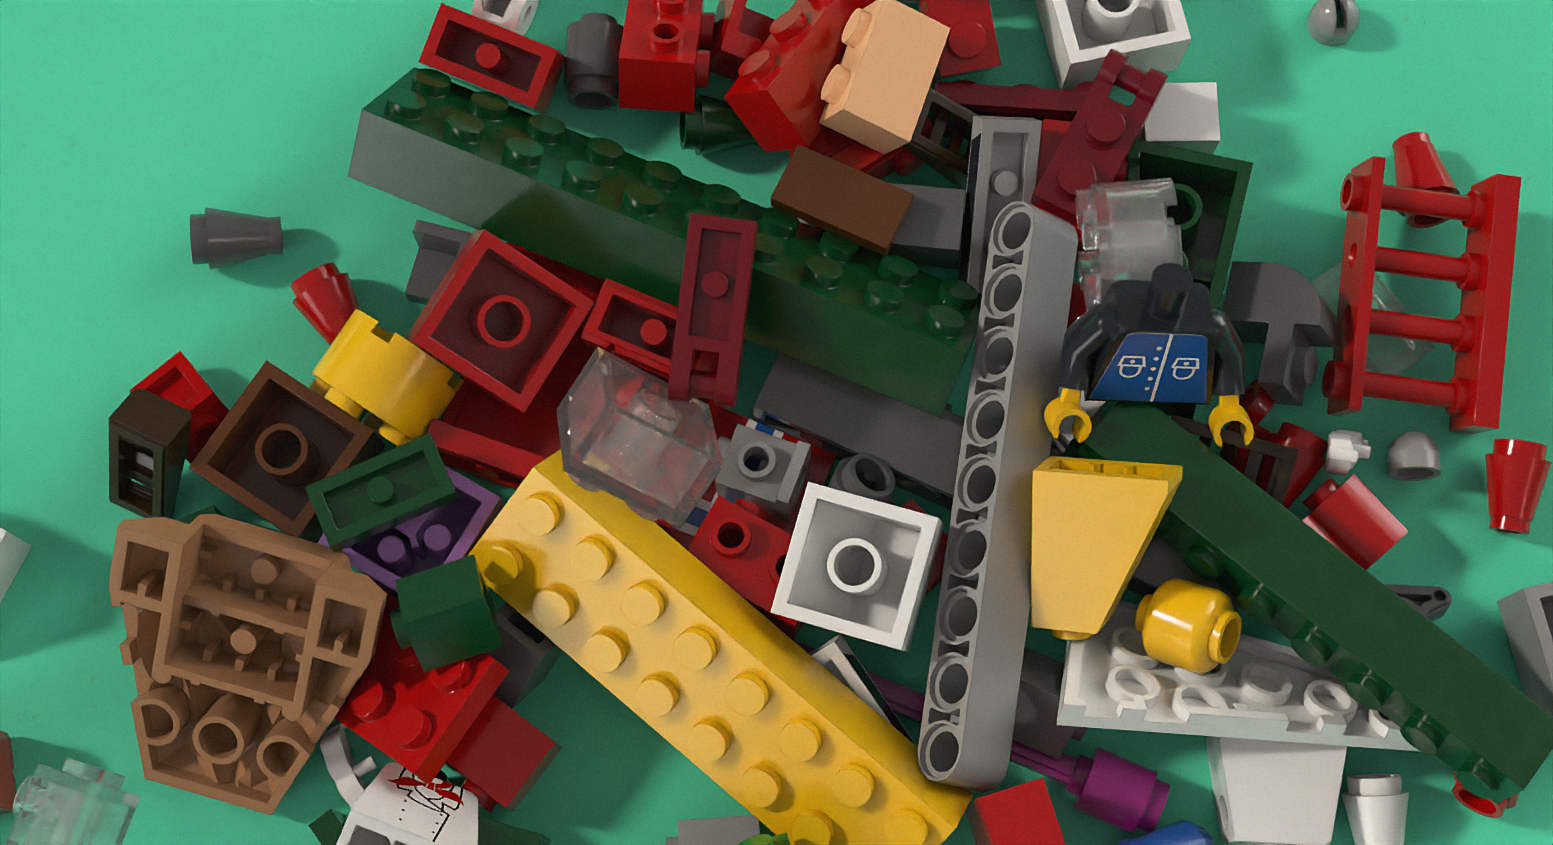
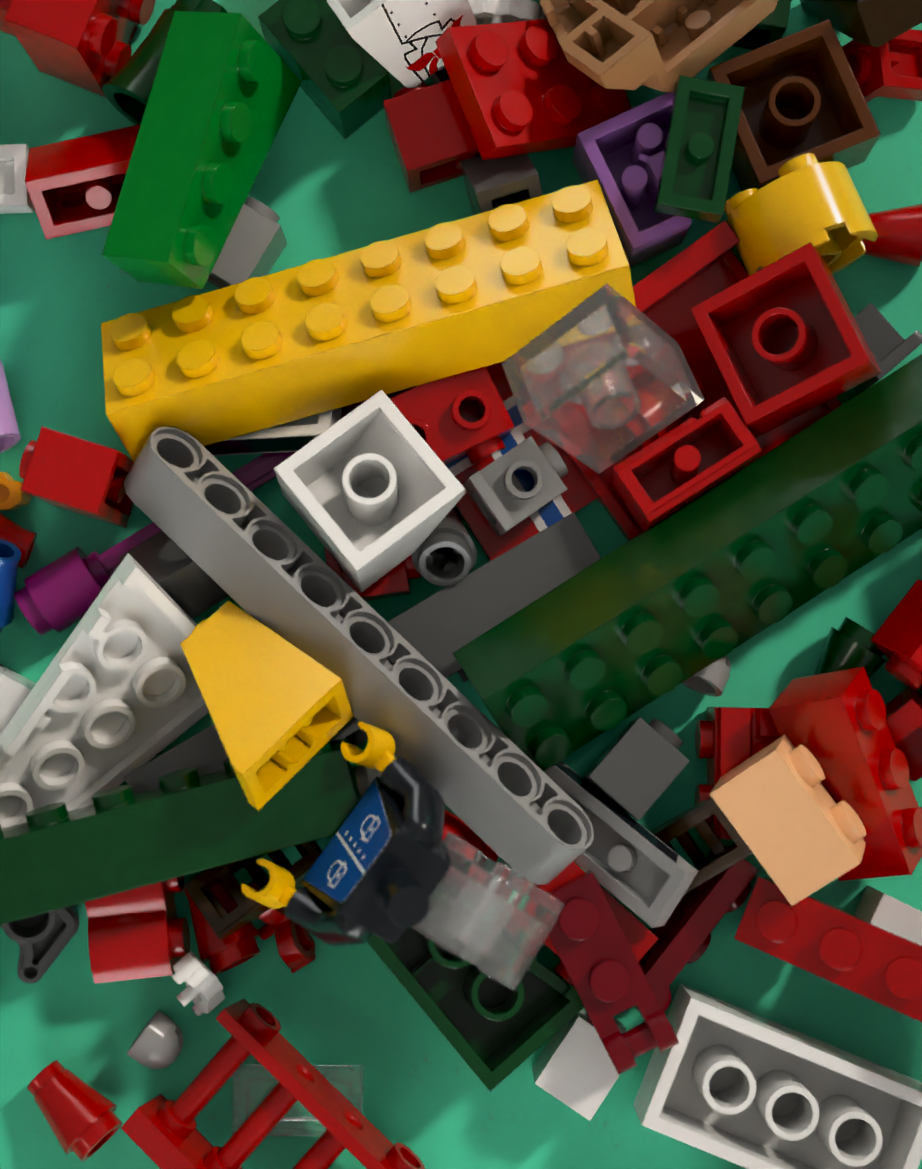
camera: 130 degrees right, 10 degrees up
(446, 614) = (559, 131): dark green brick -> none
(713, 307) = (670, 511): dark red plate -> none
(842, 200) = (700, 705): reddish brown tile -> none
(1188, 626) = (139, 731): yellow head -> none
(1285, 313) = (338, 1024): dark grey brick -> none

